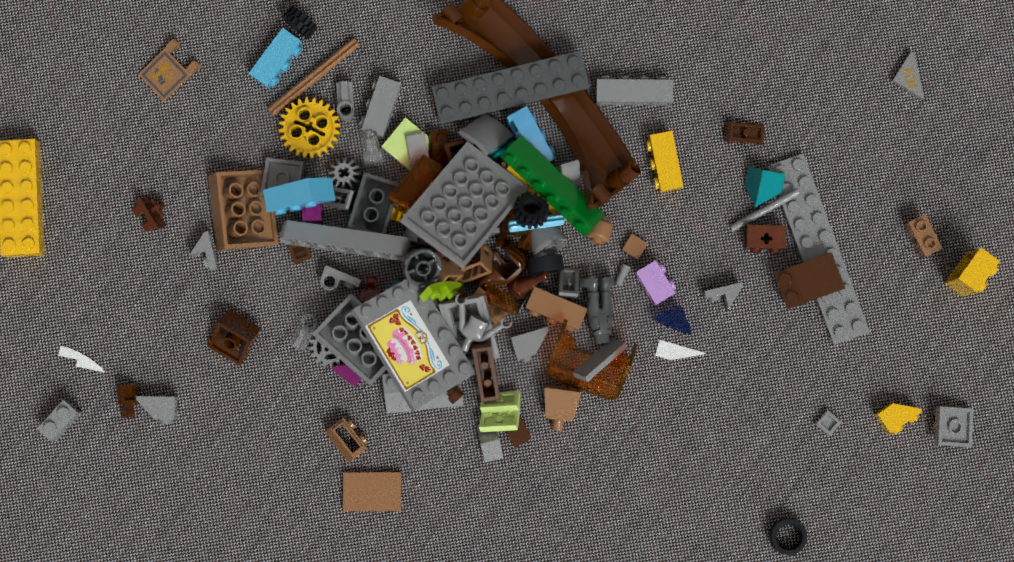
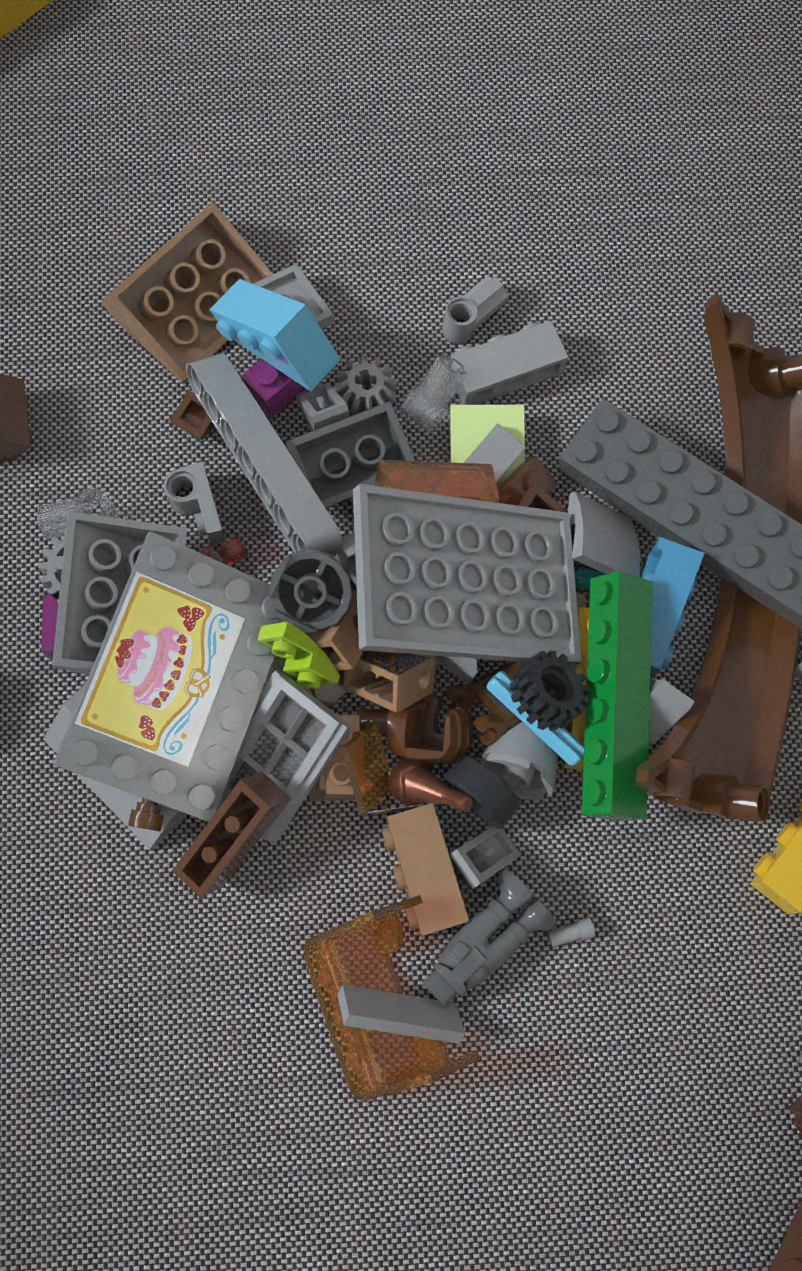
camera: 50 degrees right, 10 degrees down
(152, 212) = (86, 178): copper hips -> none
(165, 73) = (307, 60): medium nougat flag -> none
(206, 246) = (93, 283): light grey slope -> none
(276, 59) = (449, 175): medium azure brick -> none
(299, 22) = (529, 162): black tyre -> none
(313, 76) = (469, 244): medium nougat axle -> none
(317, 113) = (422, 284): yellow gear -> none
(475, 327) = (287, 757): light grey piece -> none
(490, 445) = (121, 941): light grey slope -> none
(501, 413) = (178, 922): yellowish green slope -> none
(519, 436) = (170, 974): reddish brown brick -> none
(527, 344) = (332, 872): light grey slope -> none
(560, 404) = (274, 1010): medium nougat torso -> none
(601, 232) = (608, 839): medium nougat head -> none
(634, 246) = (633, 915): medium nougat tile -> none
(655, 282) = (607, 1001): lavender brick -> none
(673, 351) = (521, 1133): white sticker -> none
(675, 320) = (574, 1088): clear blue slope -> none
(728, 292) = (696, 1145): light grey slope -> none

